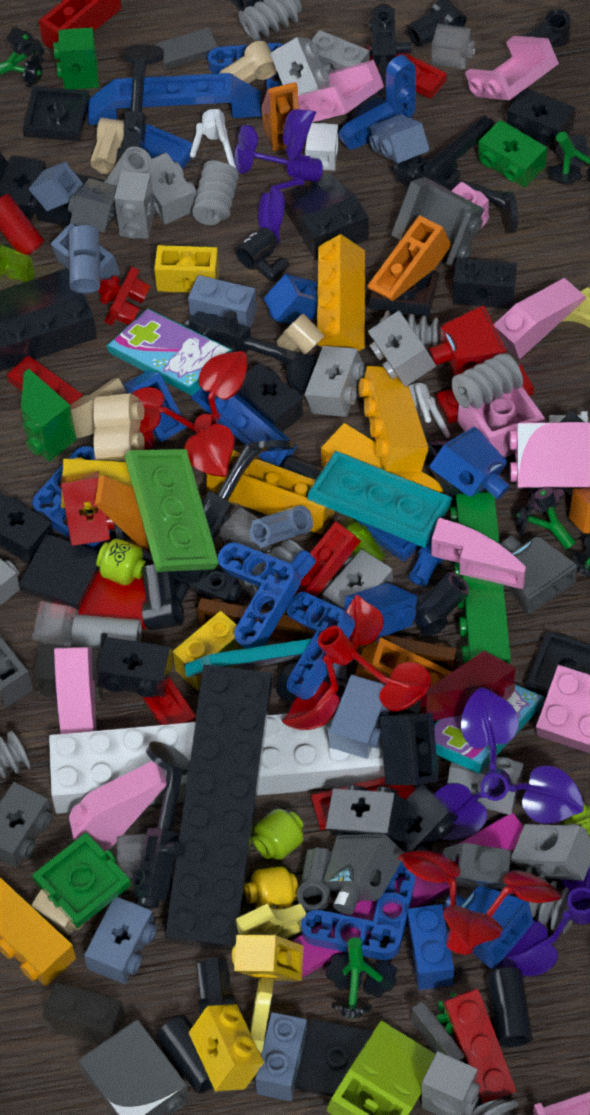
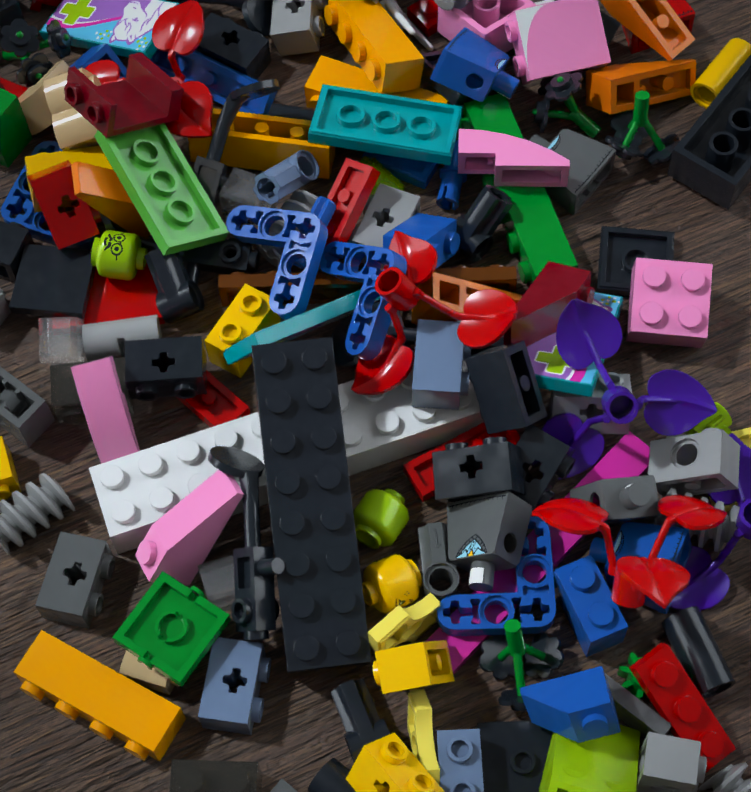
camera: 15 degrees left, 5 degrees up
(86, 354) = (21, 40): none -> black plant
(160, 434) = (139, 102): none -> dark red panel
(388, 1018) = (573, 705): none -> blue slope

